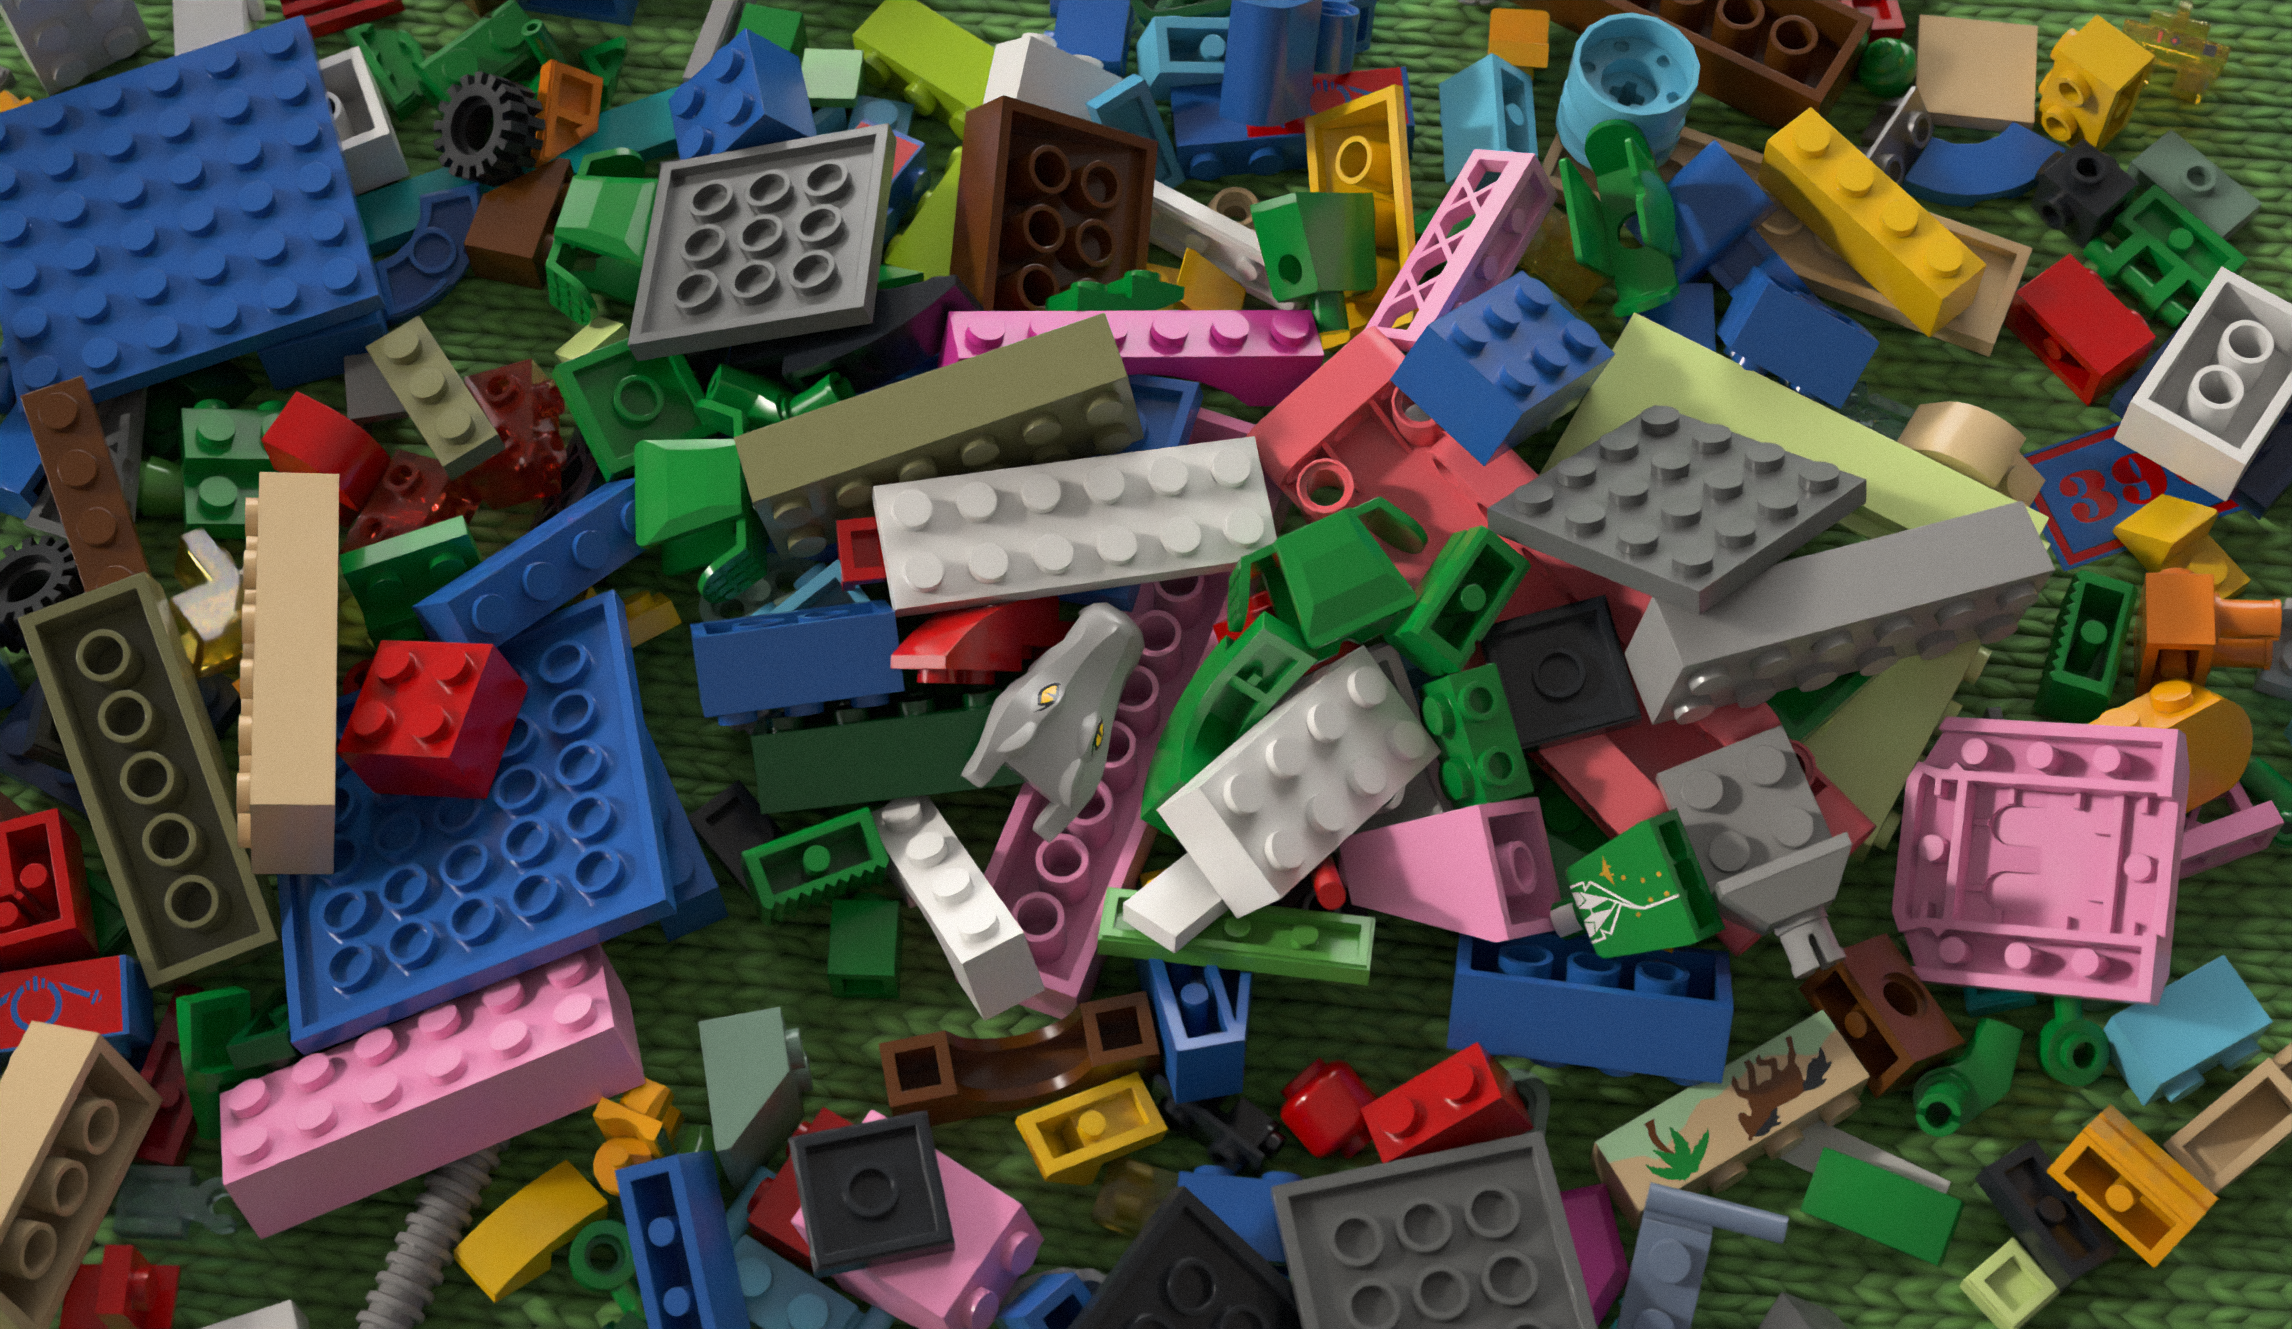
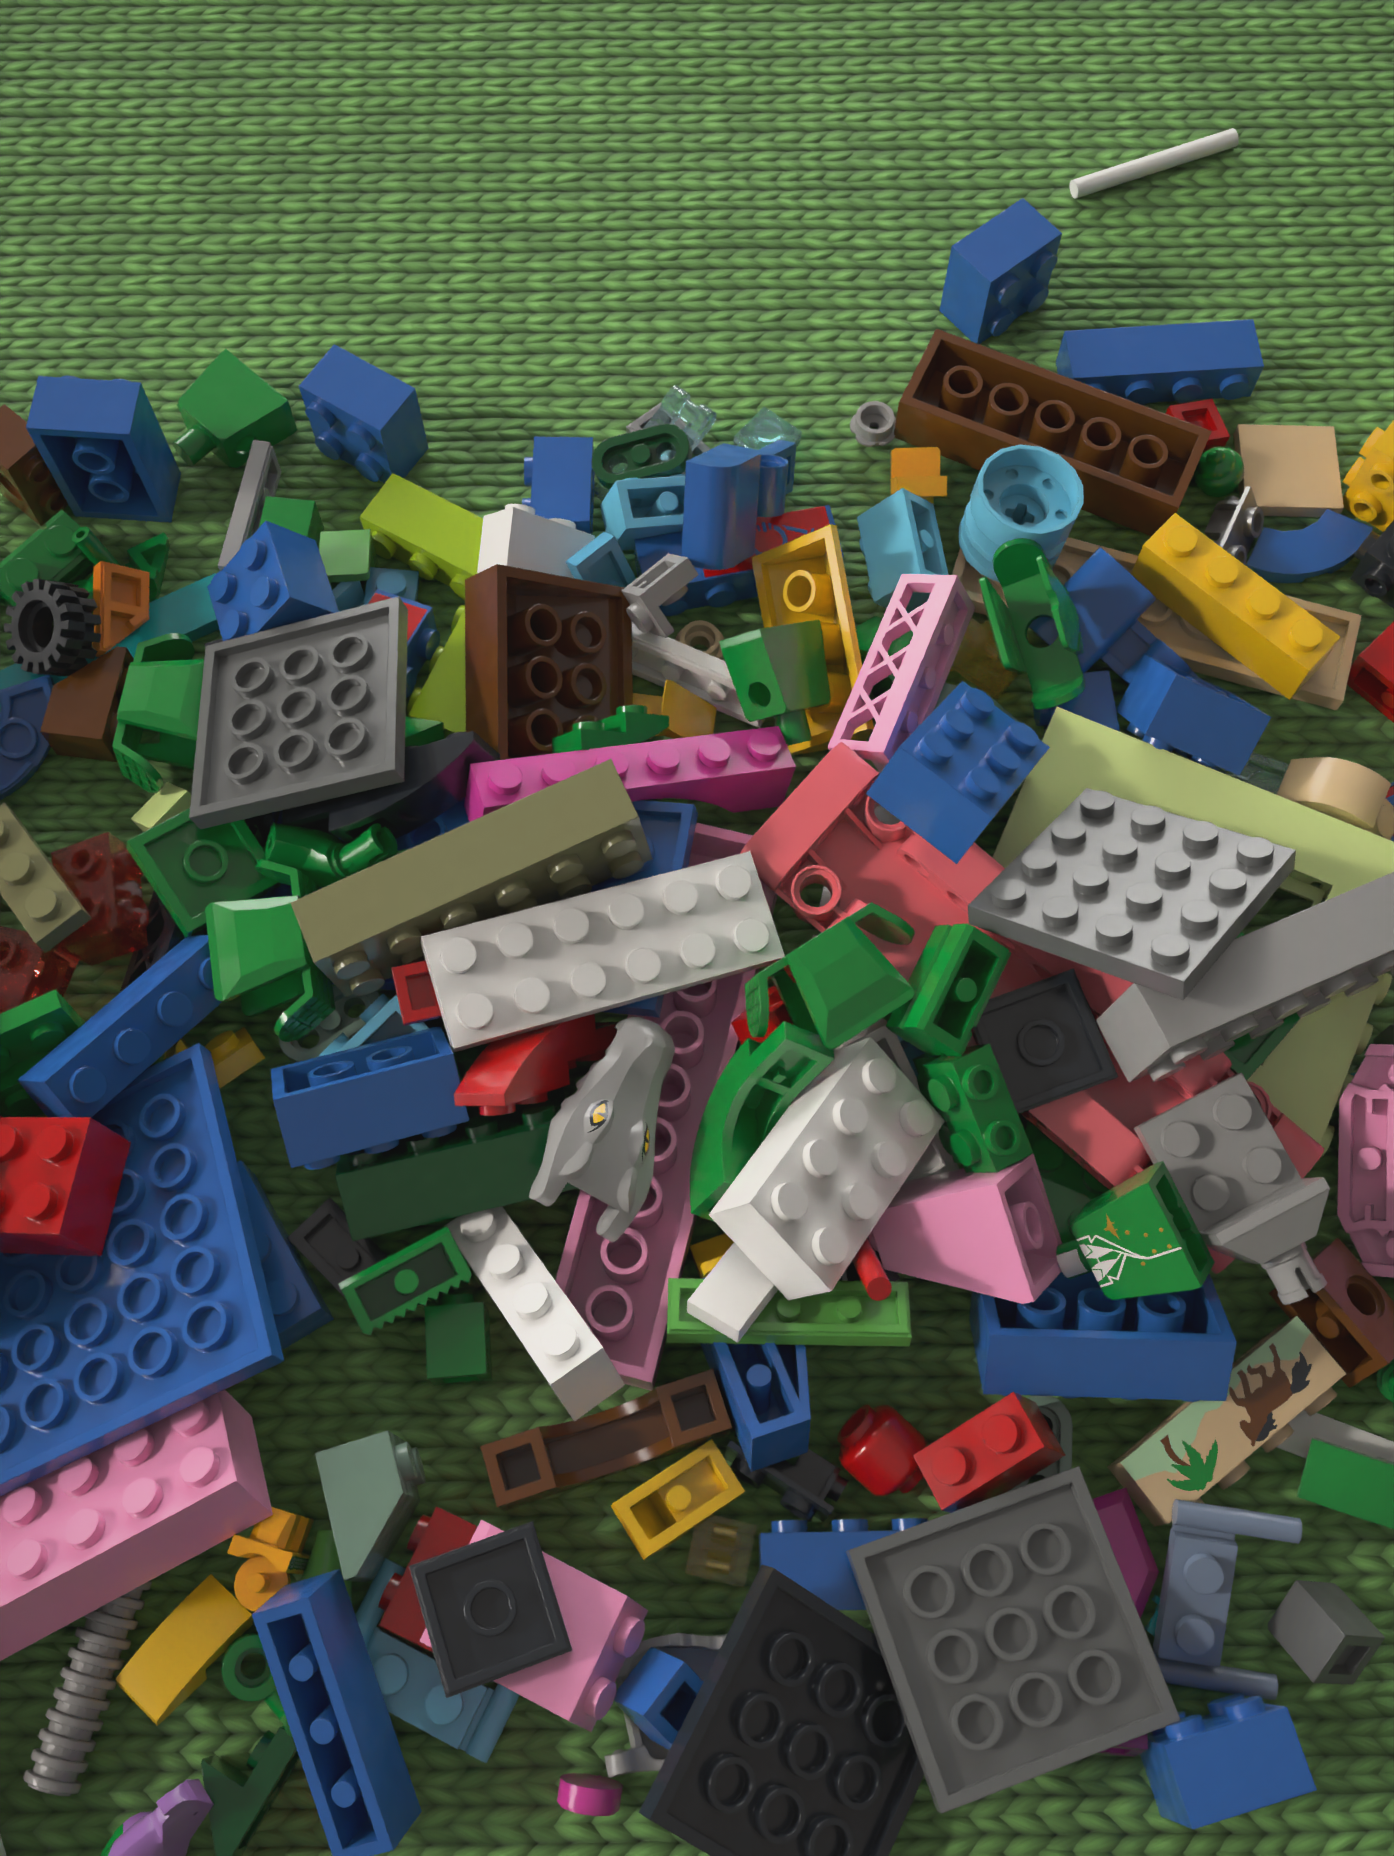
camera: 10 degrees left, 5 degrees up
(1191, 138) = (658, 586): none -> light grey bracket

